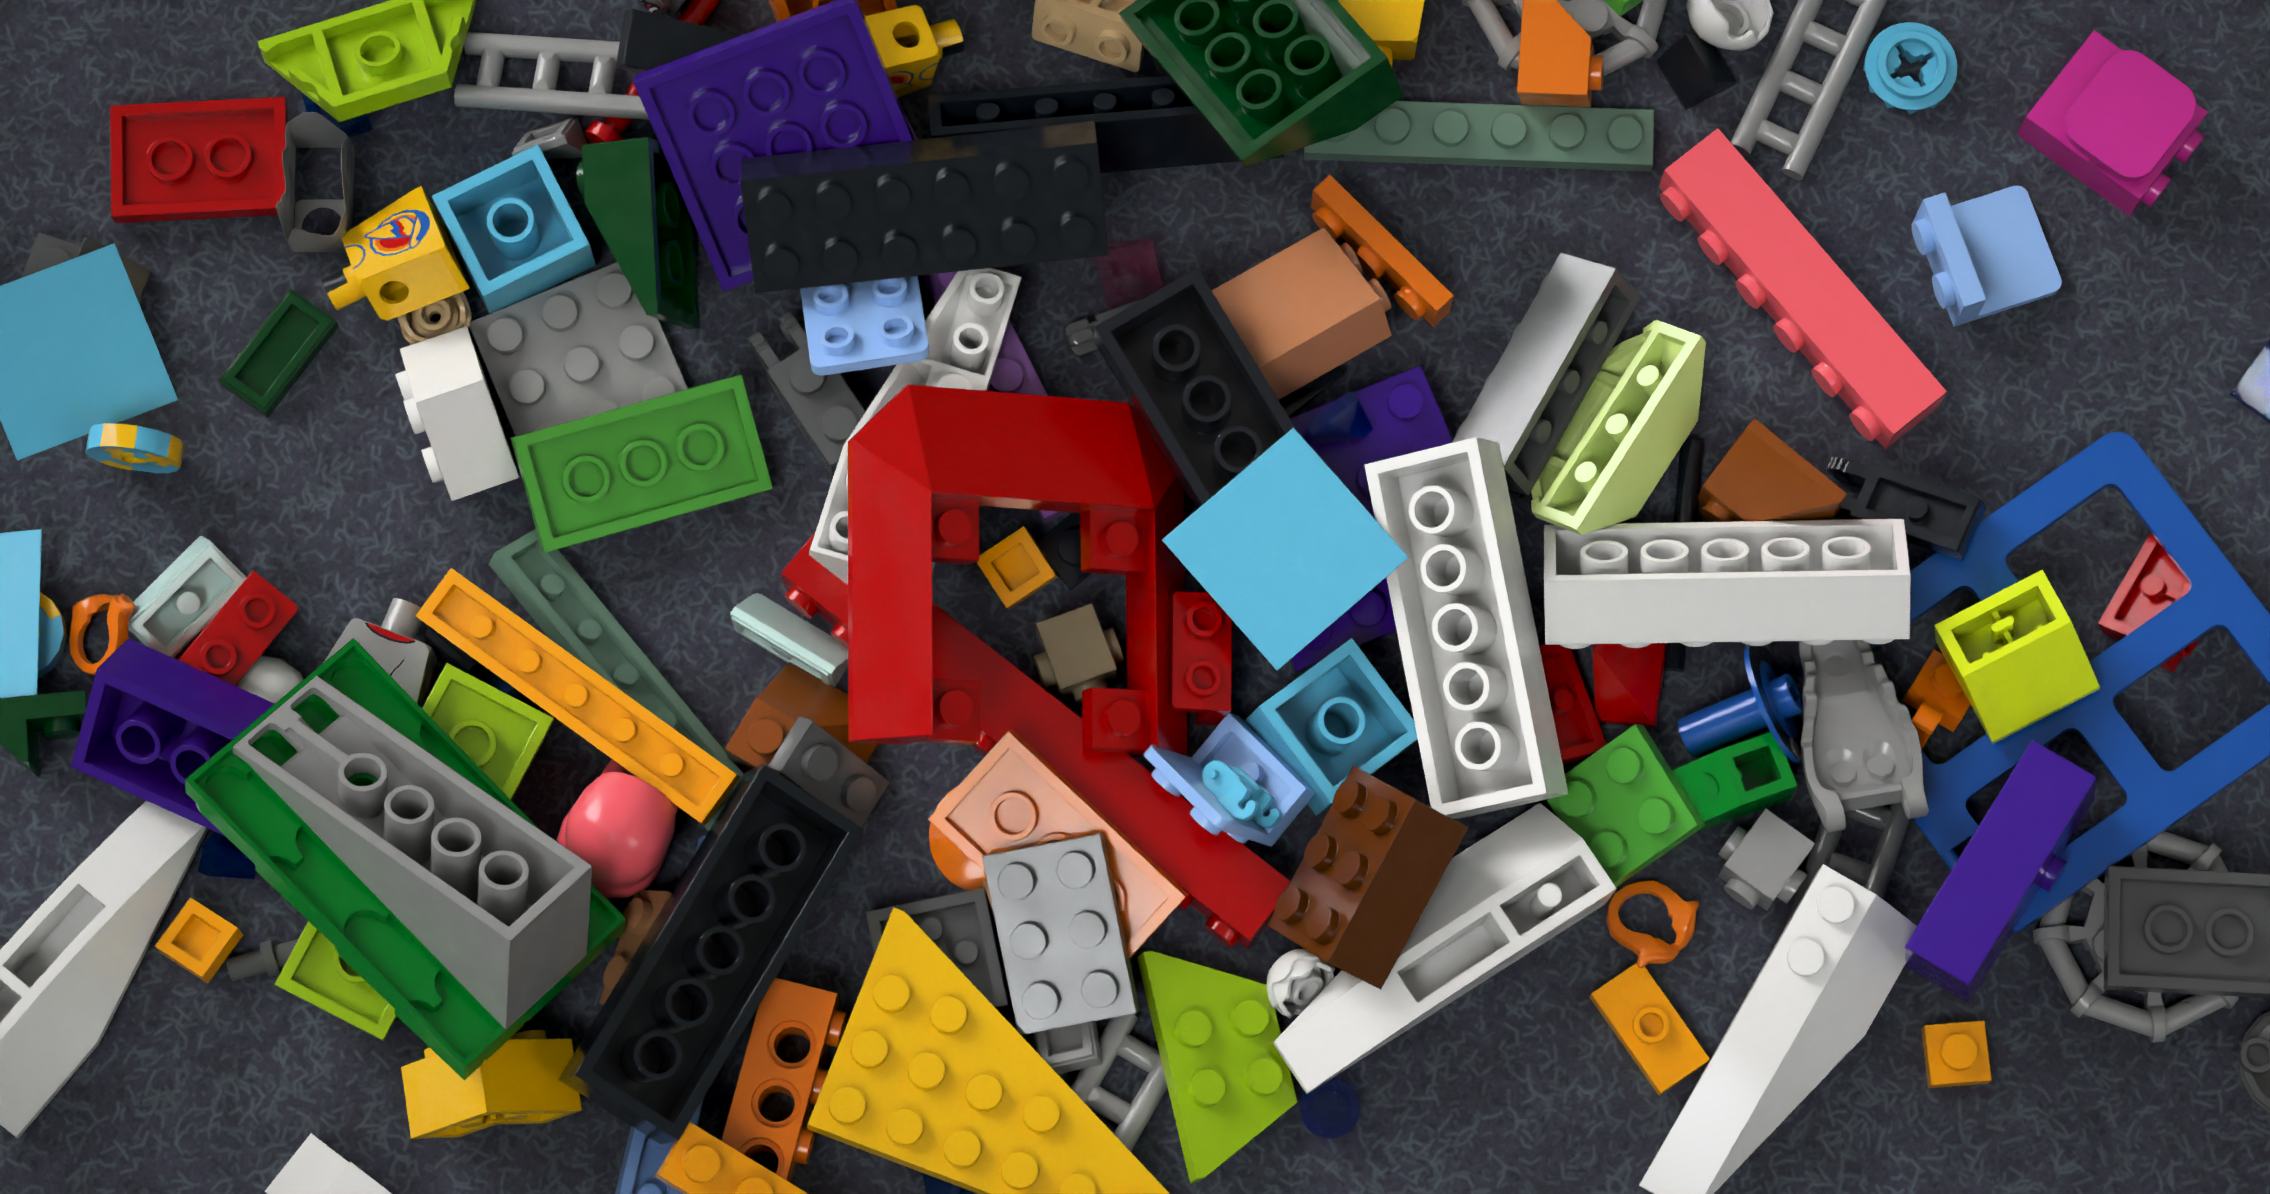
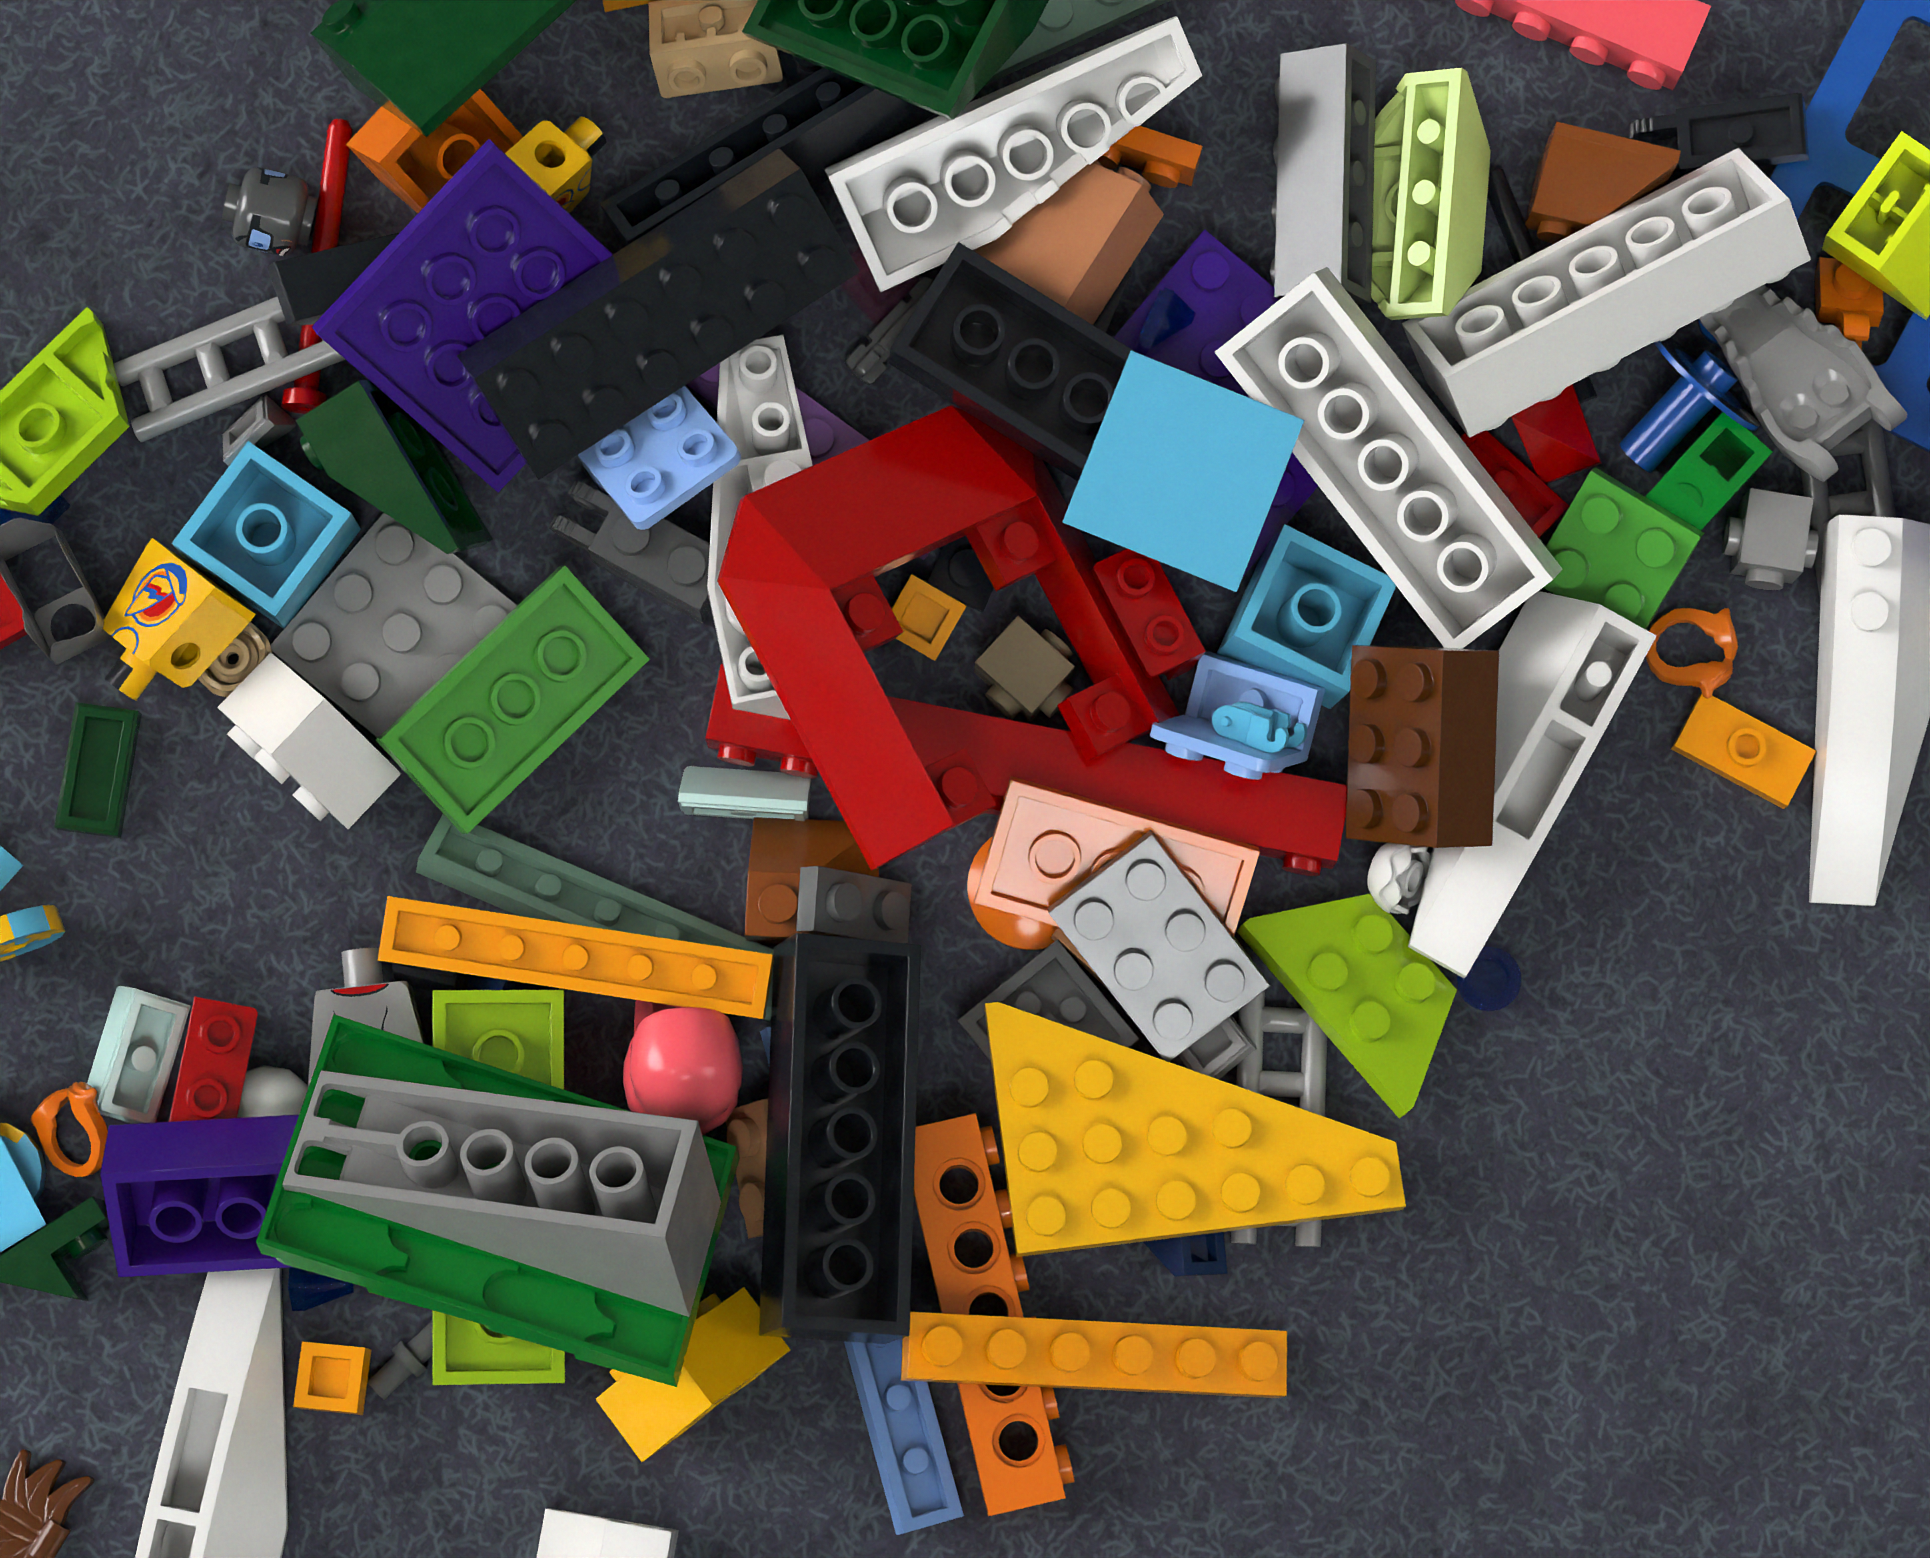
camera: 30 degrees left, 5 degrees up
(1279, 217) = (1003, 152): none -> white wedge

